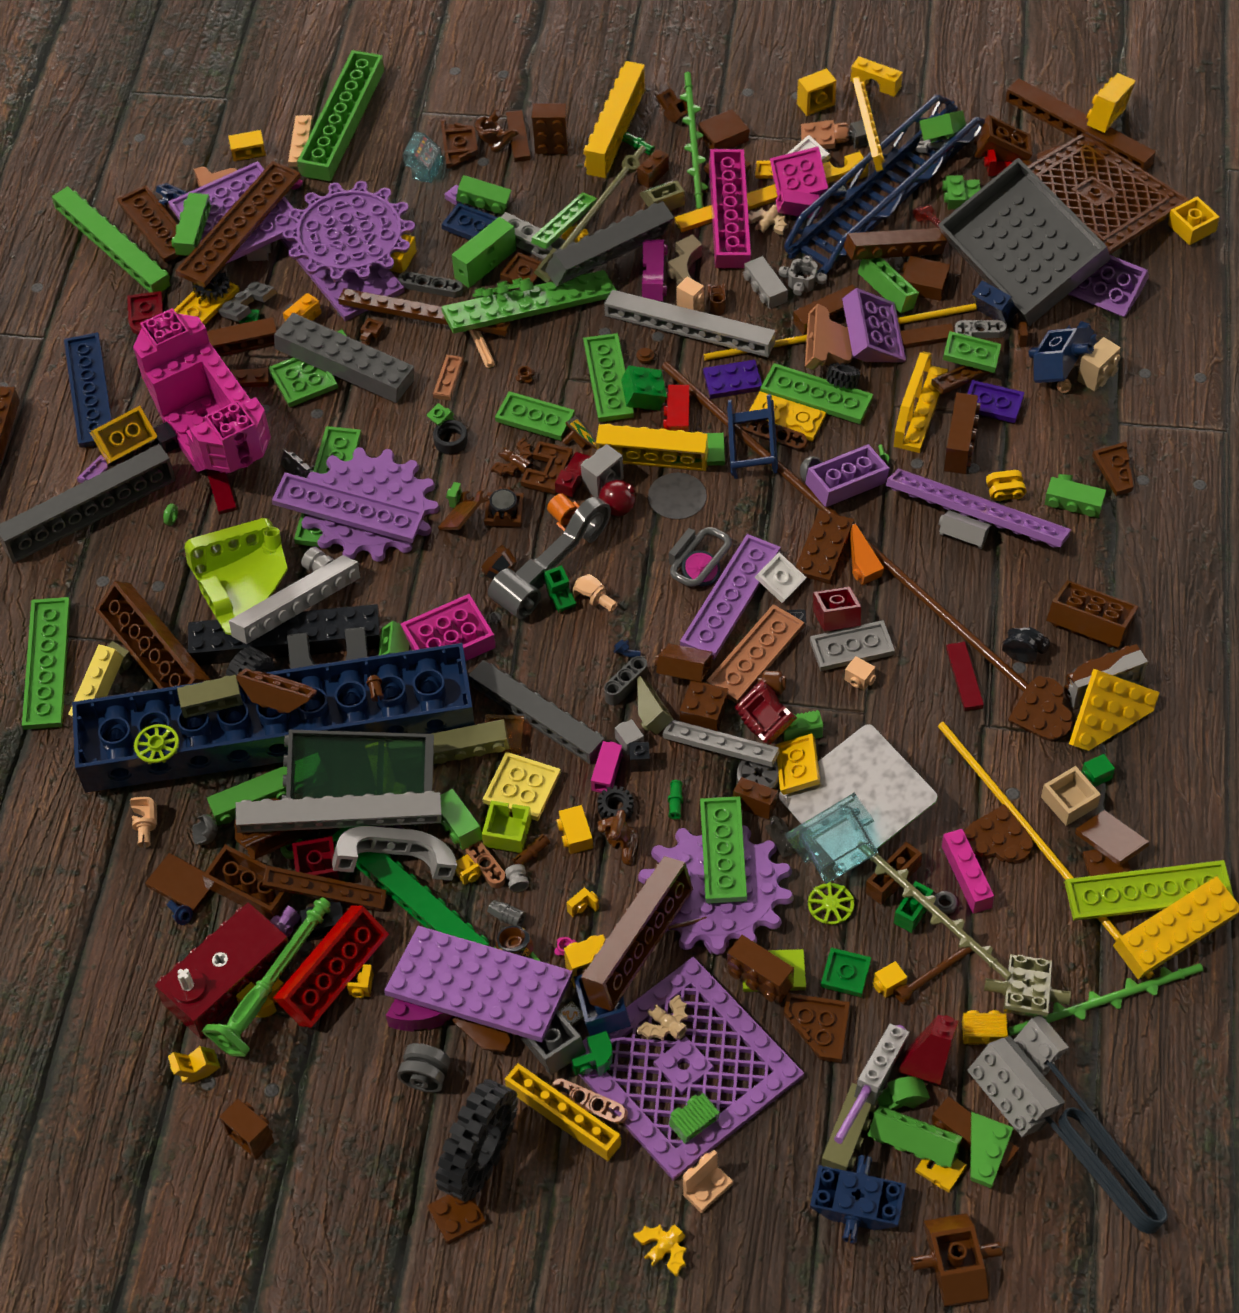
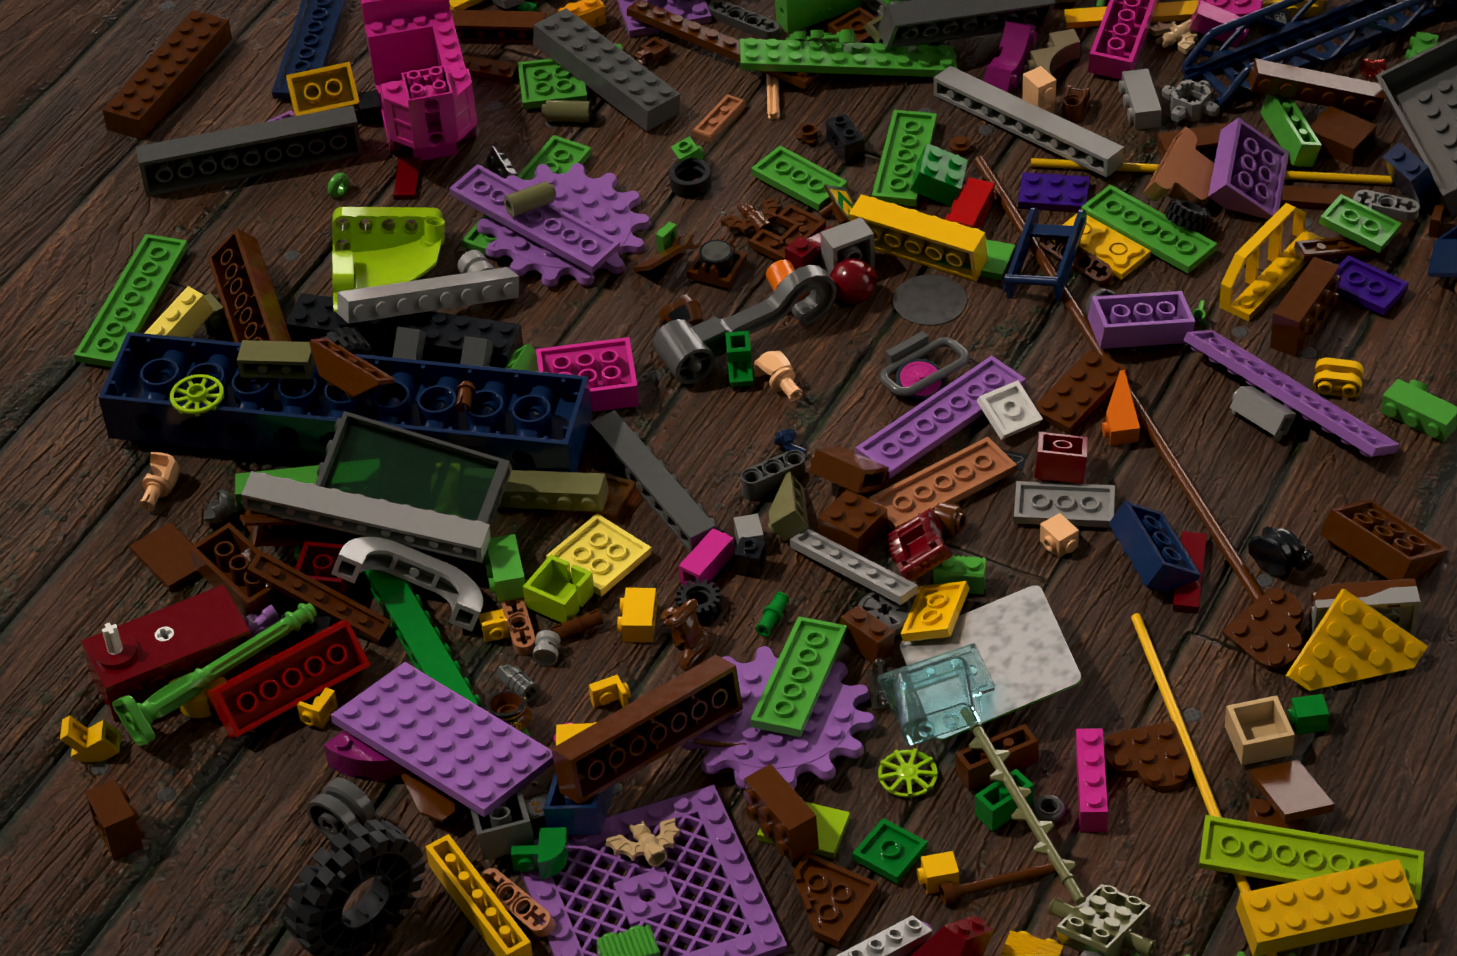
camera: 20 degrees right, 10 degrees down
(182, 914) = (154, 586): dark blue plate -> none
(327, 401) = (567, 111): none -> olive brick
(341, 494) = (529, 198): none -> olive brick
(557, 373) = (845, 139): none -> black brick
(933, 665) = (1153, 547): none -> dark blue slope

